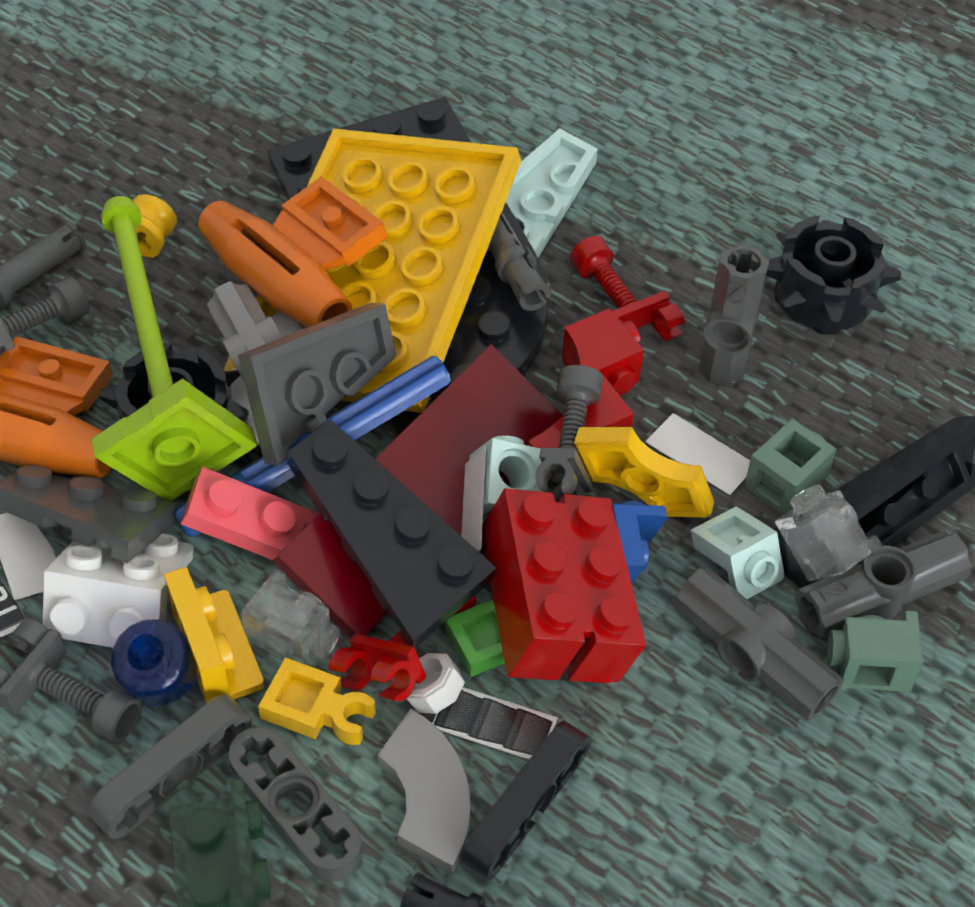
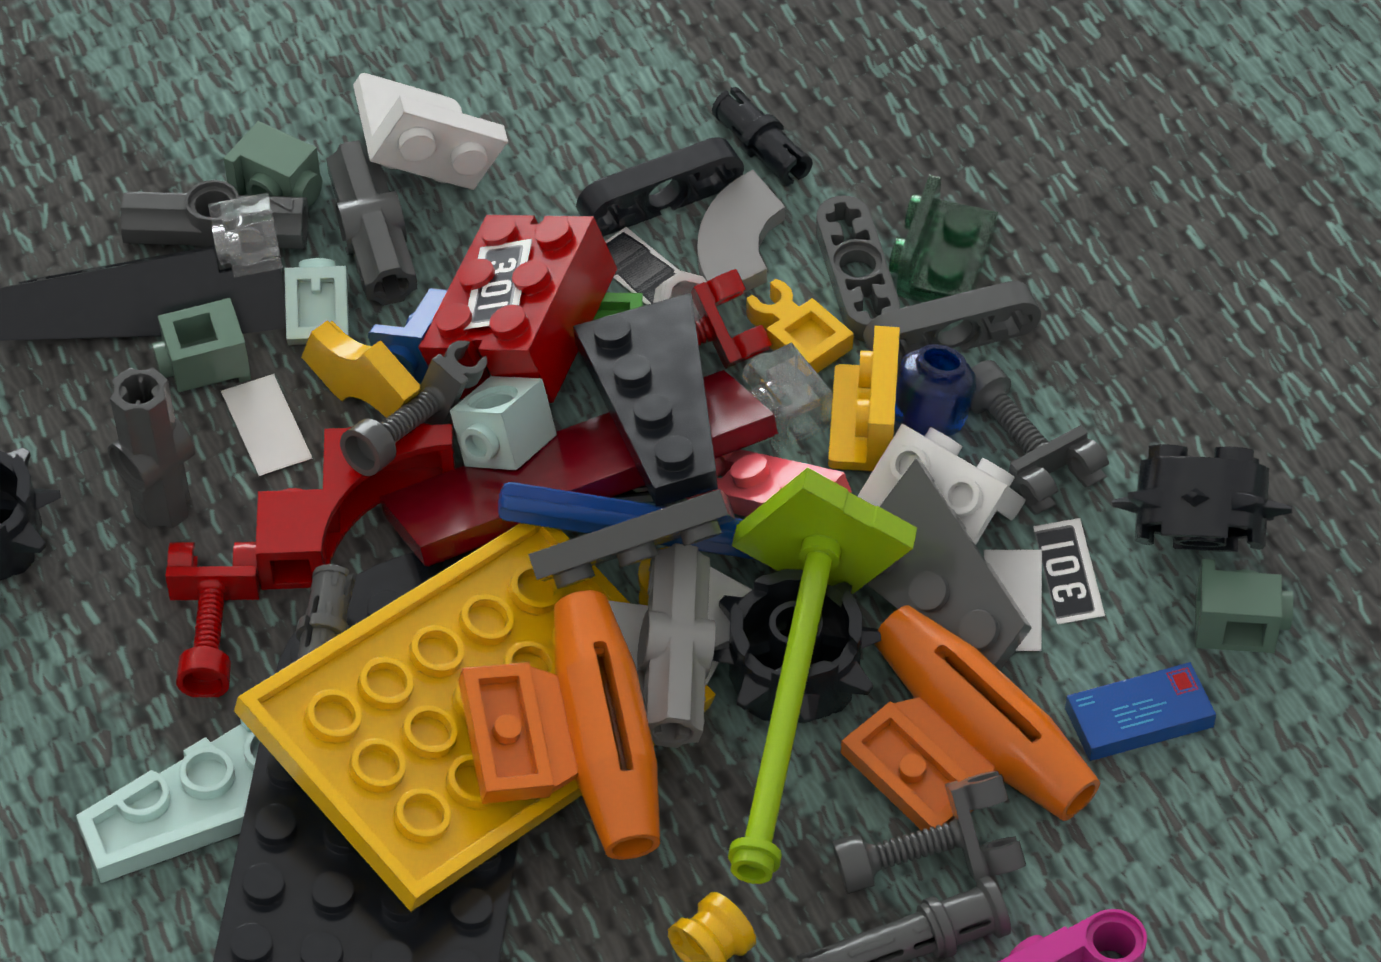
camera: 150 degrees left, 0 degrees up
(473, 499) = (548, 413): white sticker -> none
(577, 543) = (501, 289): none -> sticker
(781, 734) = (425, 132): none -> white bracket

